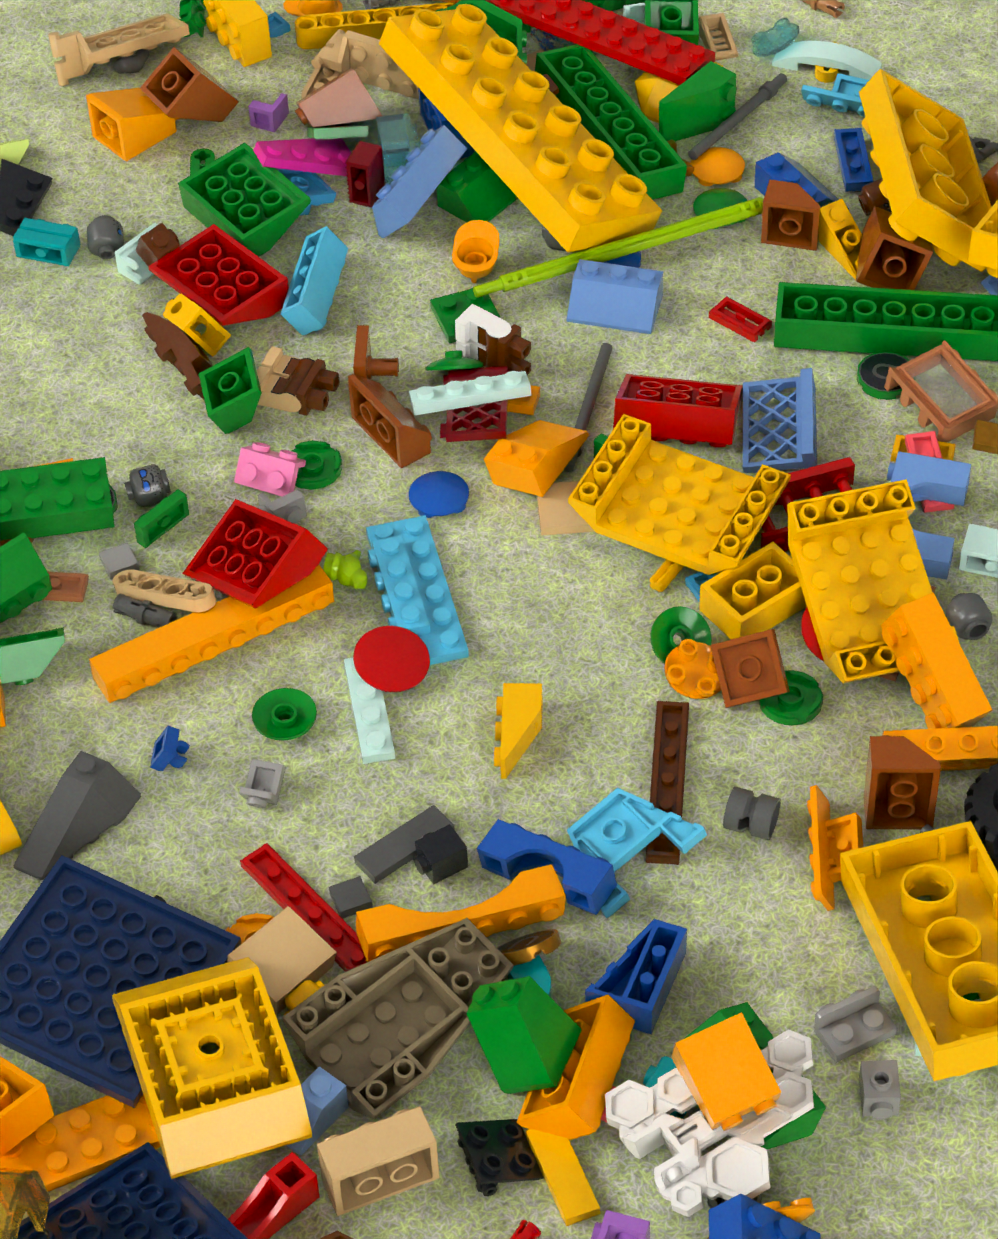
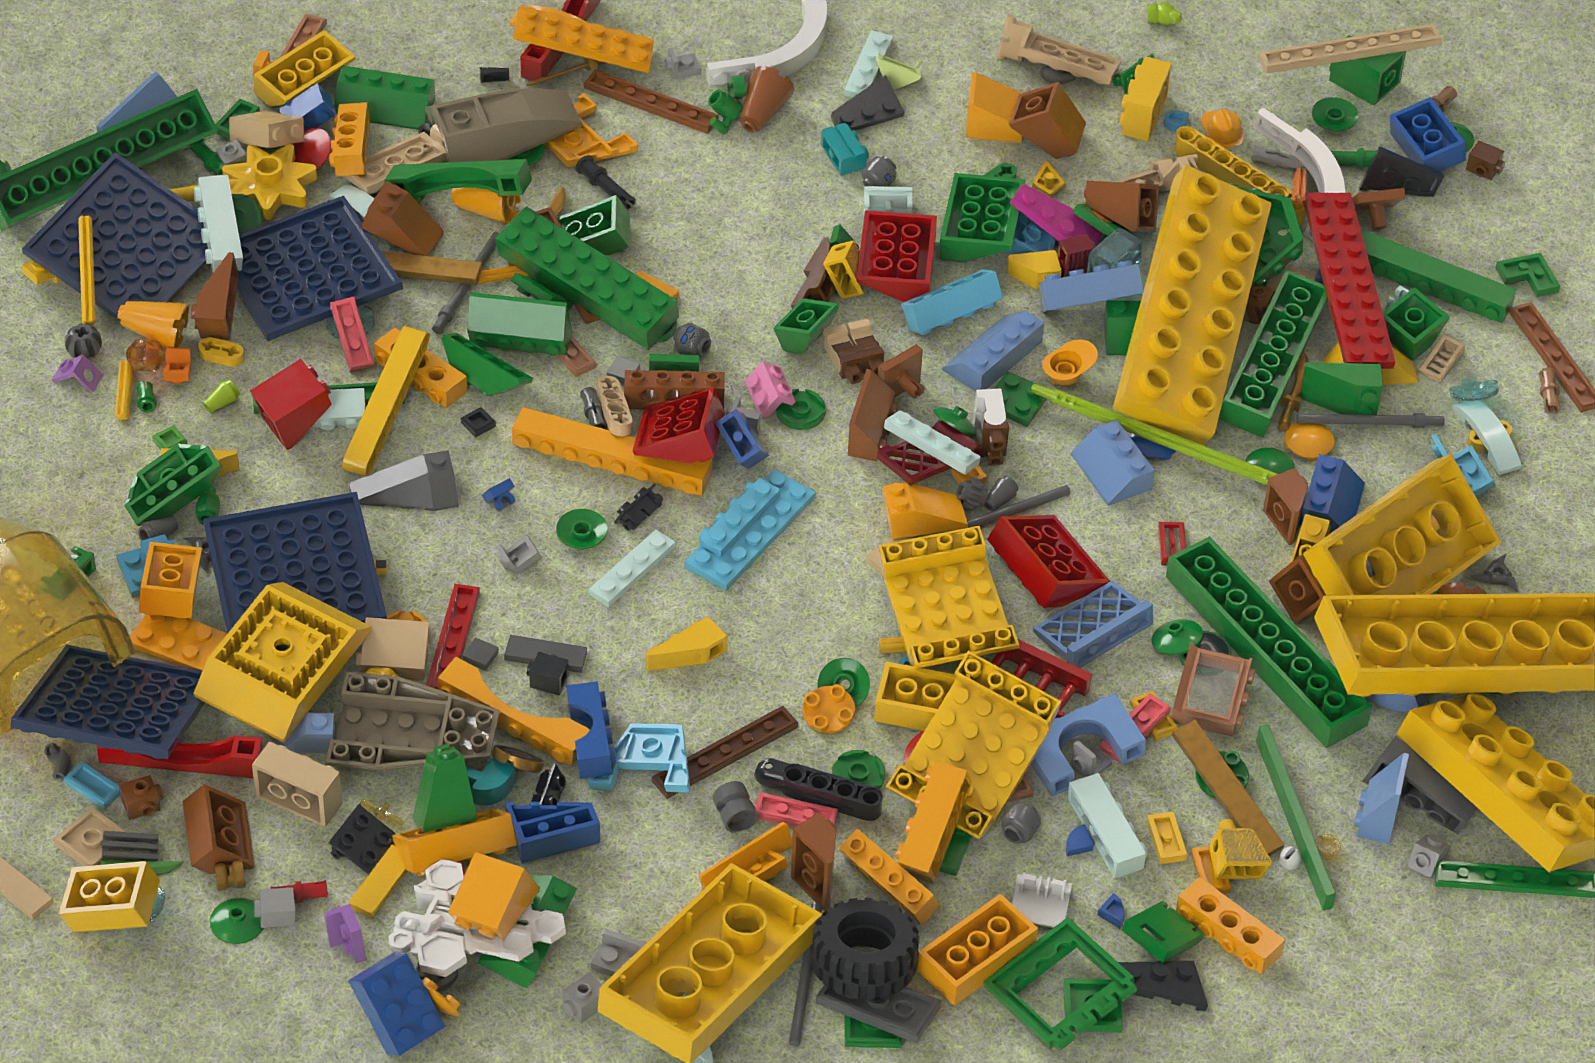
camera: 45 degrees right, 0 degrees up
(54, 711) = (478, 422): none -> black tile
(147, 306) = (840, 235): none -> green tile
(156, 244) = (889, 200): reddish brown brick -> none
(179, 542) = (652, 387): none -> dark orange brick
(238, 136) = (1048, 180): none -> yellow piece
(268, 116) = (1080, 175): medium lavender panel -> none
(301, 649) = (631, 513): none -> black hinge
(322, 521) = (742, 439): none -> blue brick
(338, 207) = (1033, 267): none -> yellow slope
(346, 569) = (728, 481): lime animal -> none
(391, 658) = (675, 550): red shield -> none
(396, 291) = (996, 350): none -> medium blue slope
(439, 494) = (842, 487): blue dish -> none
(469, 1114) = (381, 812): none -> clear yellow piece
(550, 407) = (972, 493): none -> dark grey gear
(567, 390) = (1001, 493): none -> dark grey cone
(577, 945) = (551, 784): none -> black hinge
(750, 668) = (847, 731): dark orange tile -> none
(790, 734) = (821, 788): none -> black piece
(798, 772) = (790, 811): none -> coral tile
(853, 380) = (1176, 636): none -> green dish
(938, 522) = (1085, 759): none -> light grey bracket

